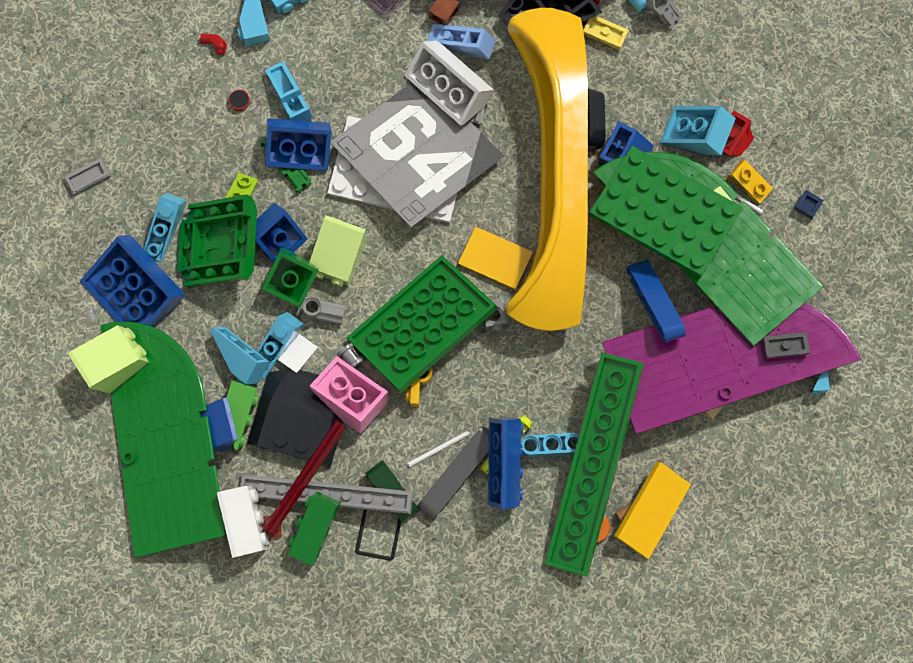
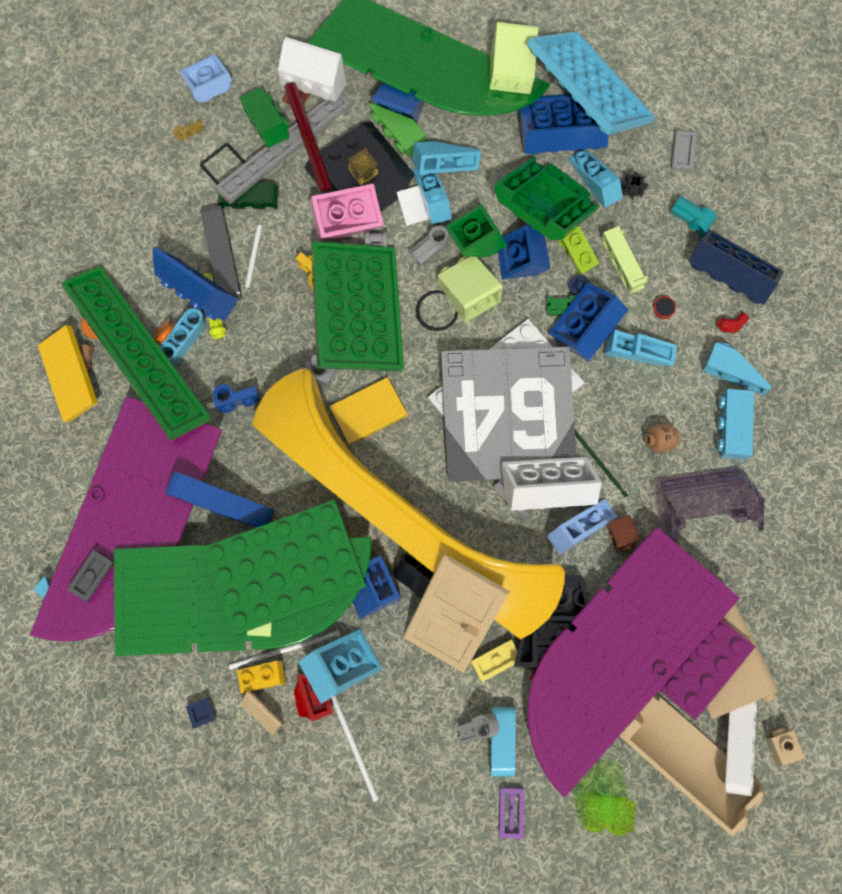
camera: 135 degrees right, 0 degrees up
(85, 280) = (591, 82): none -> medium azure plate
(142, 129) = (697, 218): none -> teal piece
(153, 195) = (634, 185): none -> black gear
(164, 68) = (736, 267): none -> dark blue slope
(223, 154) = (623, 260): none -> yellowish green container
(269, 175) = (576, 284): none -> dark blue tile
(300, 406) = (363, 166): none -> clear yellow brick
(311, 615) = (206, 78): none -> light blue slope
(349, 30) = (662, 437): none -> medium nougat head
(370, 589) = (188, 131): none -> clear yellow arm
(389, 276) = (420, 319): none -> black piece
(401, 62) = (600, 463): none -> dark green piece
(559, 462) = (163, 331): none -> orange piece
(560, 356) = (244, 397): none -> blue plate
(601, 69) = (455, 613): none -> tan door
(746, 78) = (354, 748): none -> white axle
(773, 162) = (262, 713): none -> tan slope

